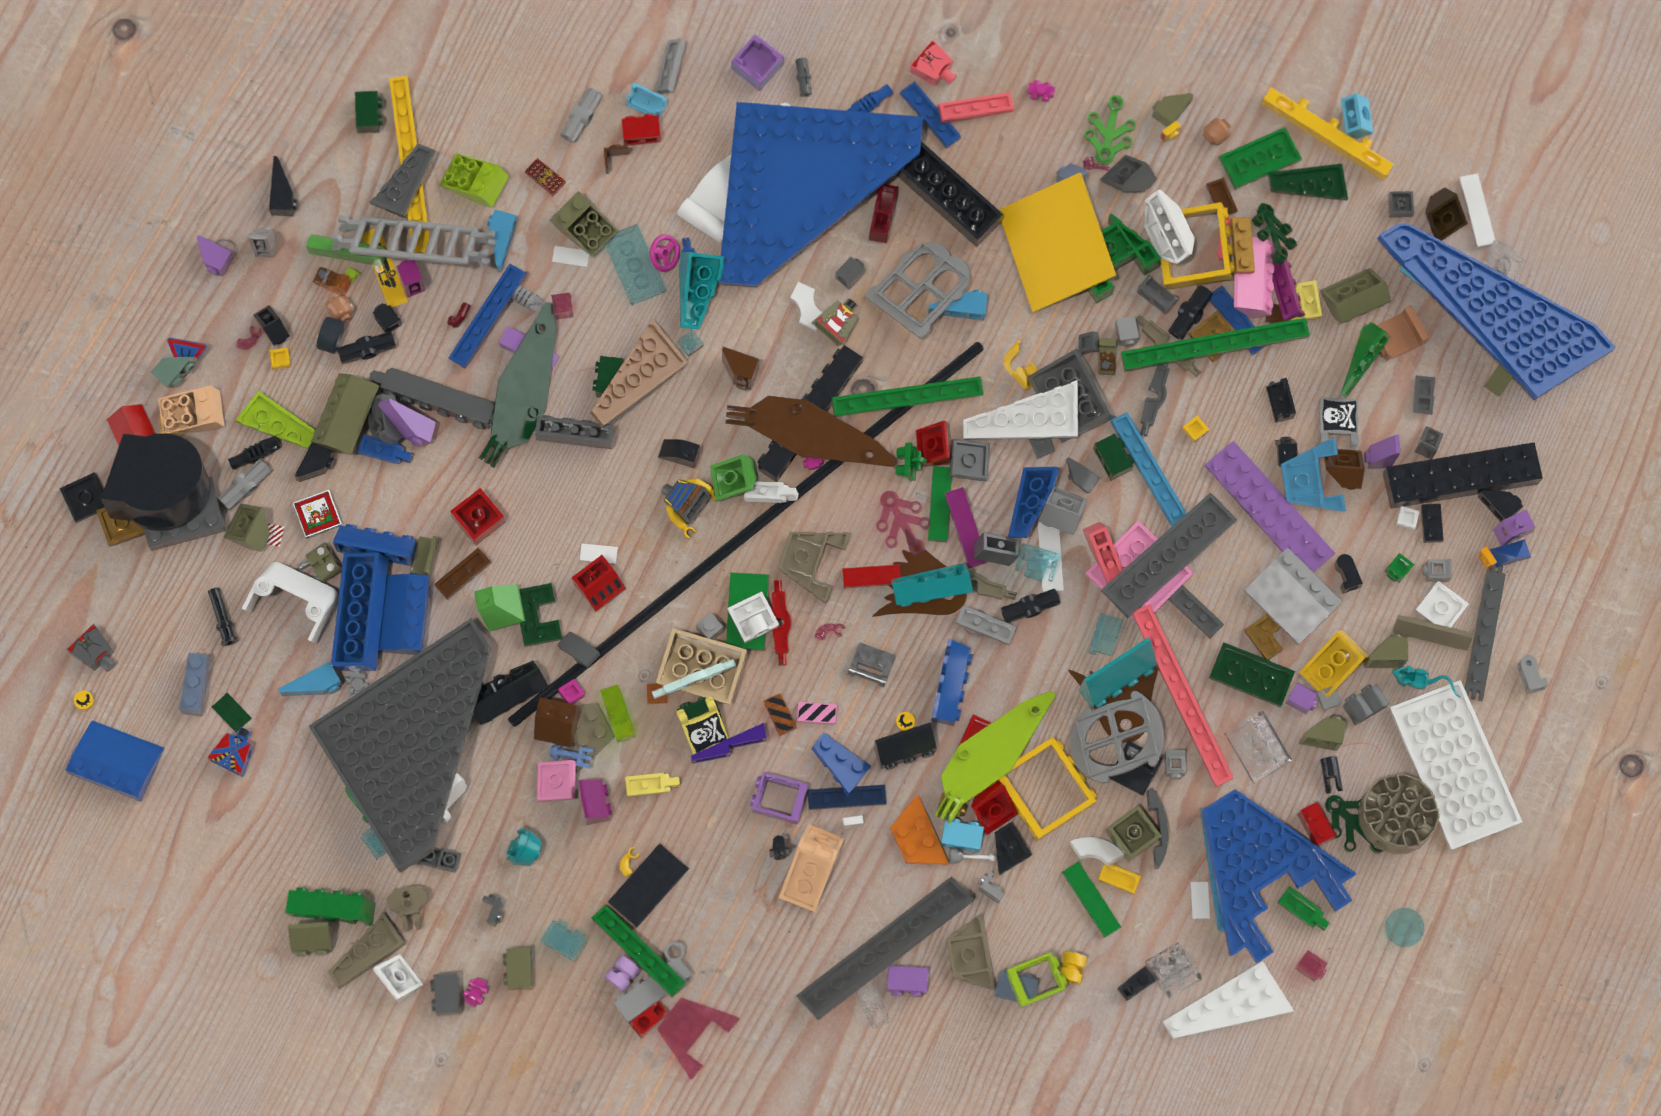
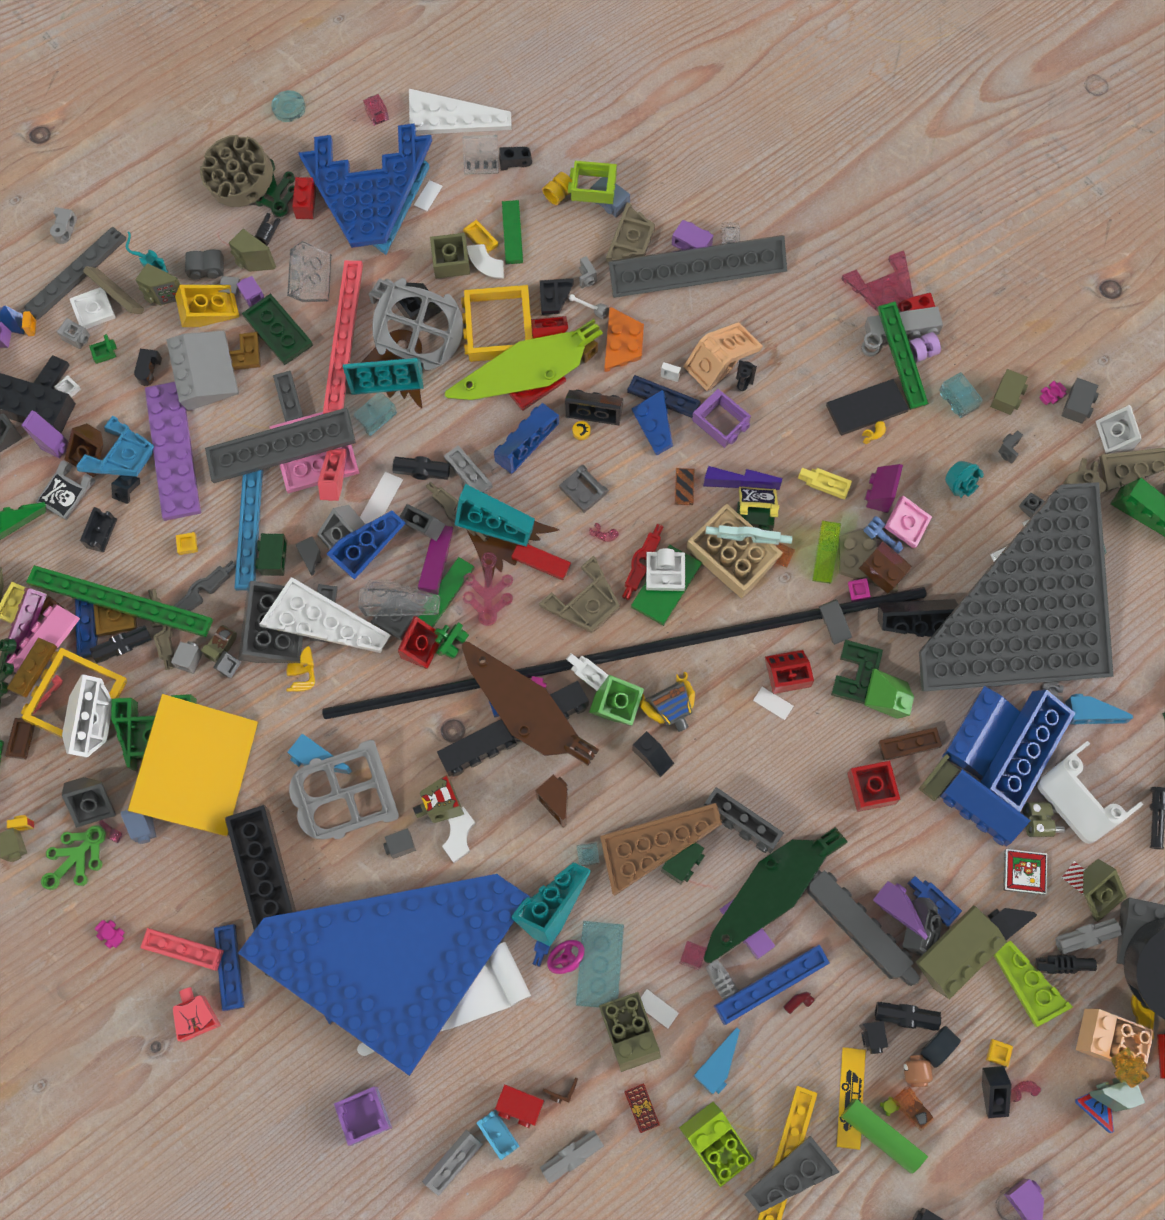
camera: 145 degrees left, 5 degrees down
(174, 386) = (1130, 1067): none -> clear yellow brick
(263, 242) = (971, 1189): light grey slope -> none
(359, 226) = (872, 1161): light grey bar -> none
(410, 277) = (833, 1064): magenta brick -> none
(709, 627) = (708, 583): light grey brick -> none
(803, 77) = (326, 1075): dark grey pin -> none
(817, 713) = (652, 472): bright pink tile -> none
(871, 100) = (279, 1011): blue hinge -> none
(883, 213) = (335, 884): dark red slope -> none
(907, 396) = (418, 696): green tile -> none
(962, 835) = (583, 313): medium azure brick -> none
(985, 468) = (395, 599): none -> clear wedge
(1037, 562) = (390, 491): clear light blue panel -> none
(1155, 805) = (425, 250): dark grey slope -> none
(1157, 295) = (137, 677): dark grey hinge -> none
(1303, 909) = (355, 150): green hinge -> none
(1456, 765) = (167, 193): white plate -> none

